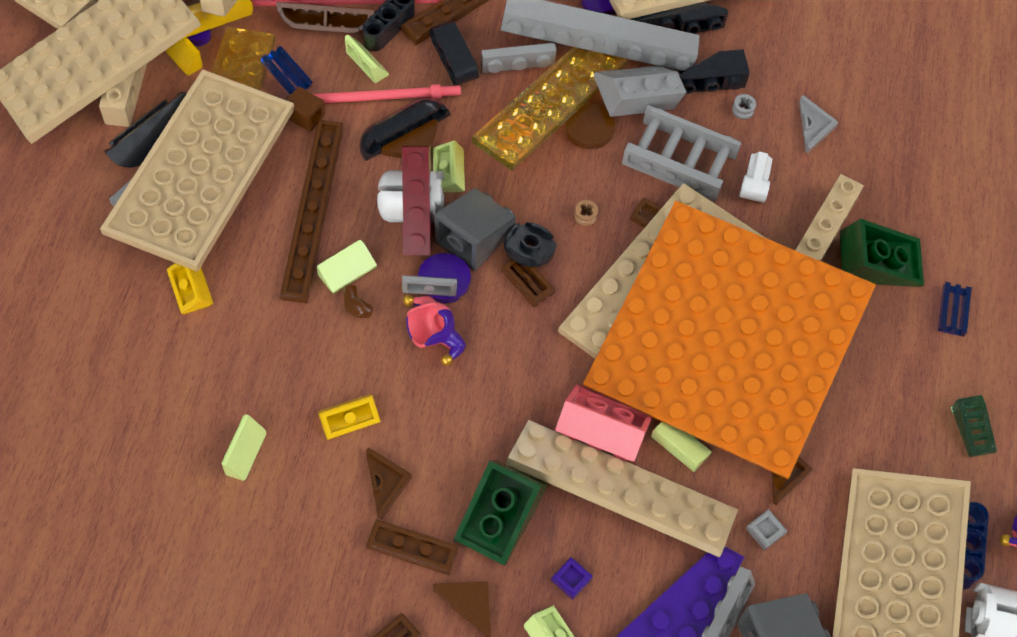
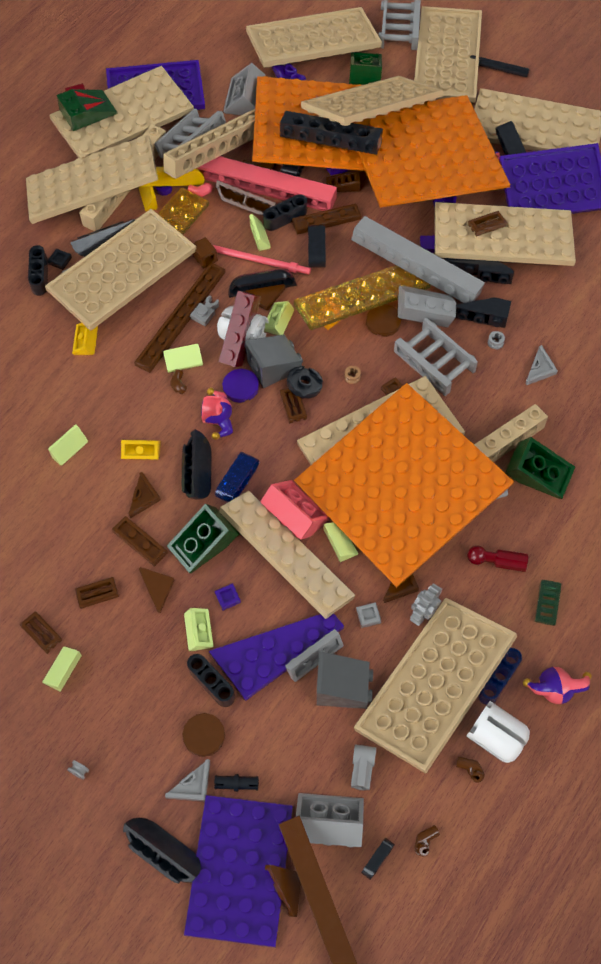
camera: 30 degrees right, 0 degrees up
(69, 199) = (38, 270): none -> black beam
(95, 182) = (59, 259): none -> black tile
(256, 22) = (202, 190): none -> coral arm
(289, 69) = (201, 214): clear blue tile -> none
(343, 193) = (204, 313): none -> light grey plate
(429, 285) = (226, 385): light grey slope -> none
(442, 413) = (196, 466): none -> black brick
(505, 408) = (237, 477): none -> clear blue beam
(518, 57) = (356, 261): light grey plate -> none
(755, 182) = (477, 392): white piece -> none
(839, 487) = (426, 604): none -> light grey gear
(892, 391) = (500, 558): none -> dark red piece
(957, 291) = (583, 509): clear blue tile -> none

